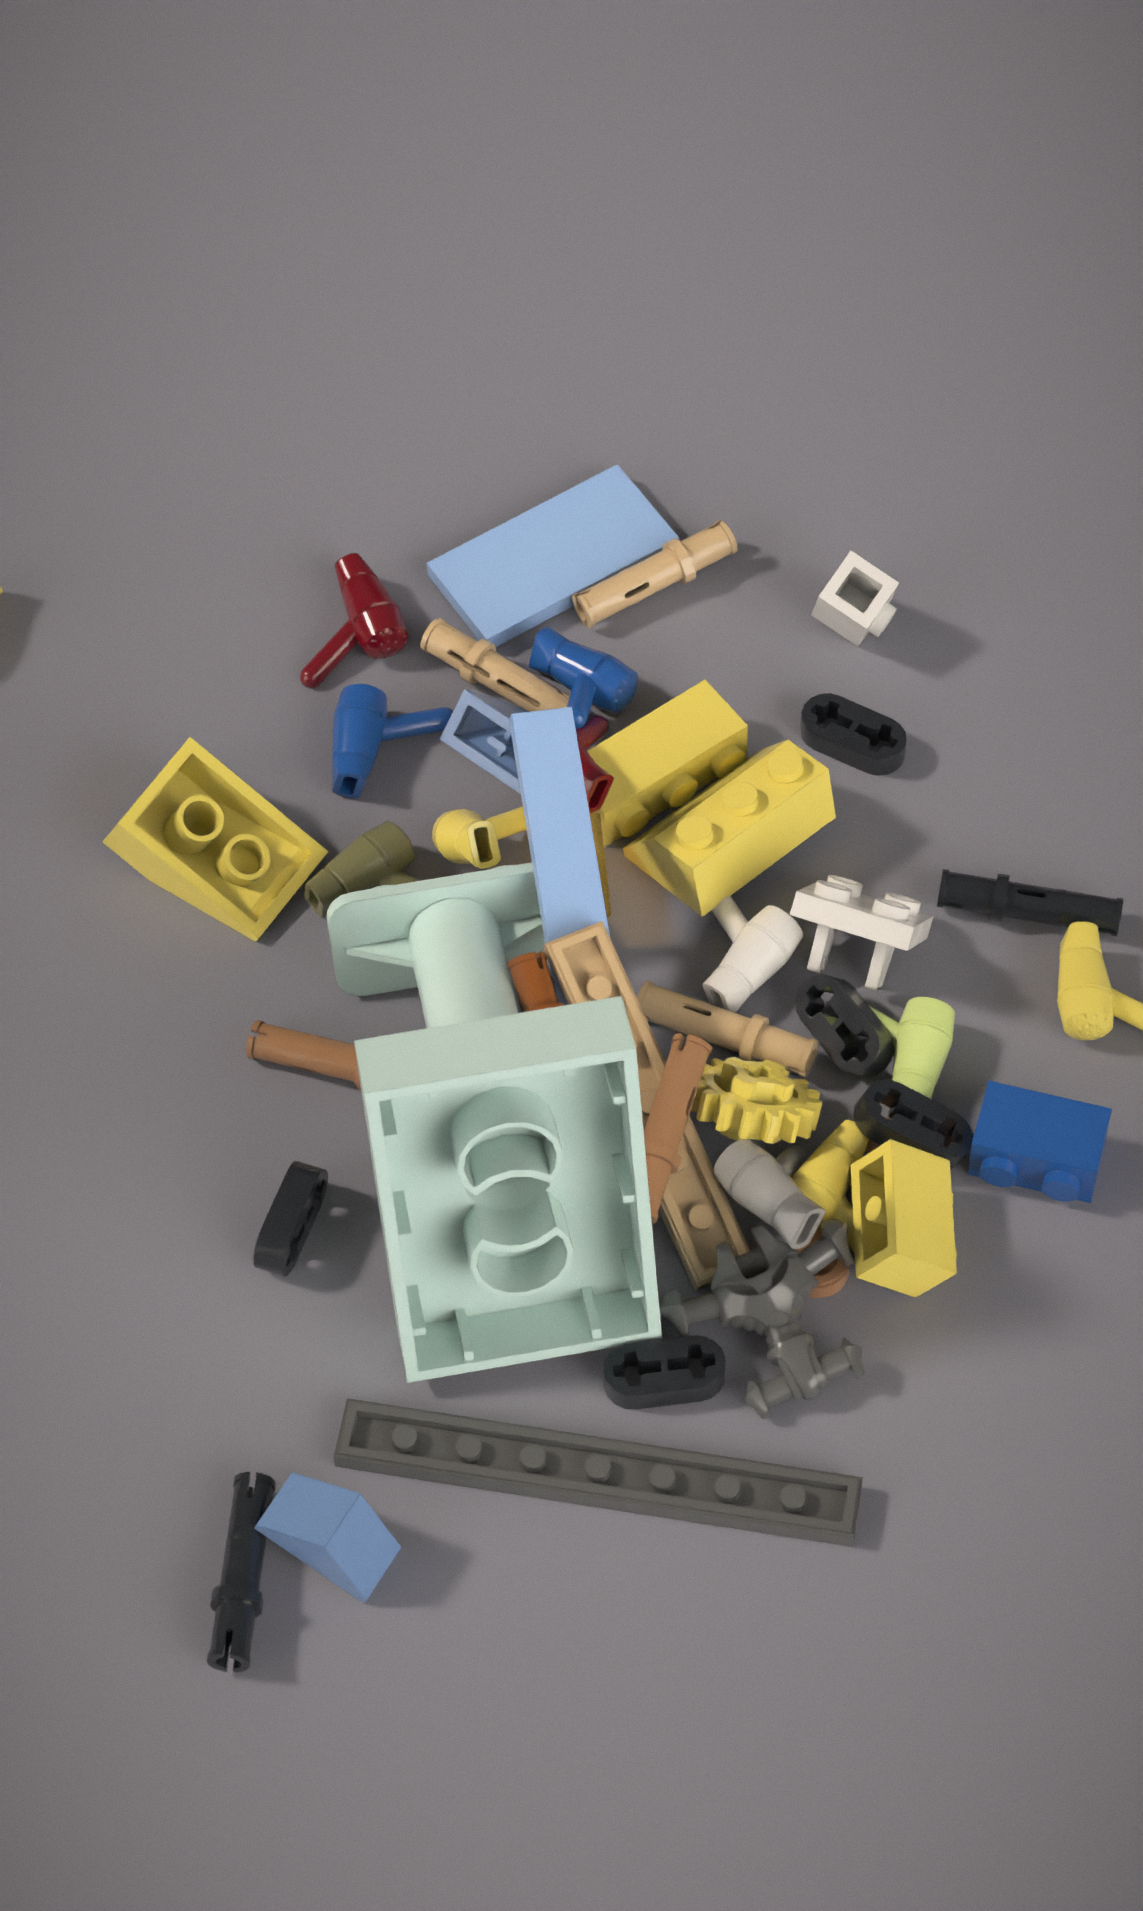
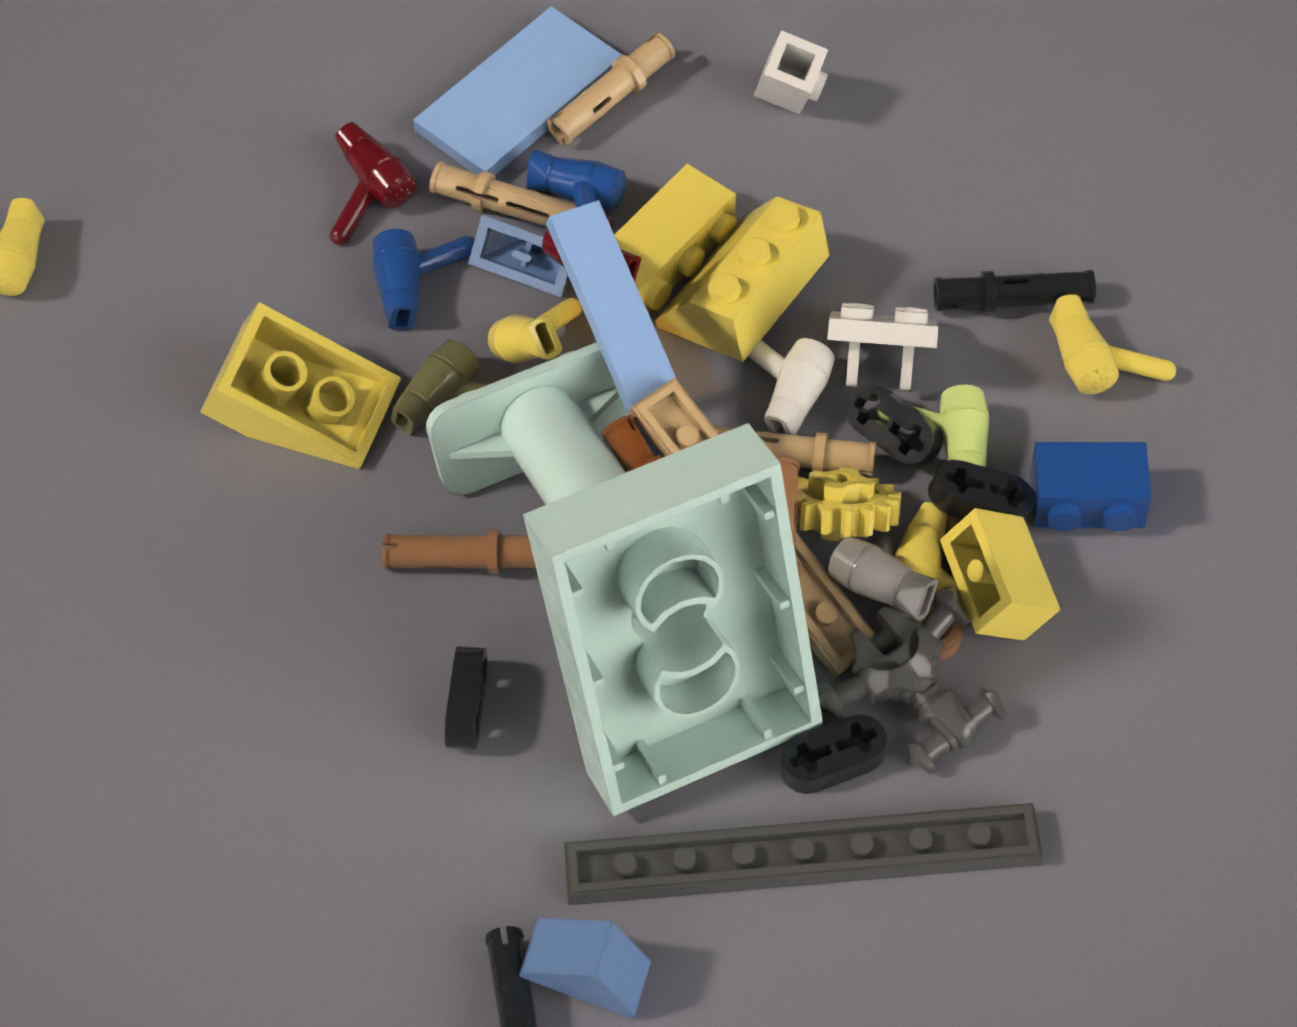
camera: 15 degrees left, 0 degrees up
(853, 734) = (821, 184): black beam -> none

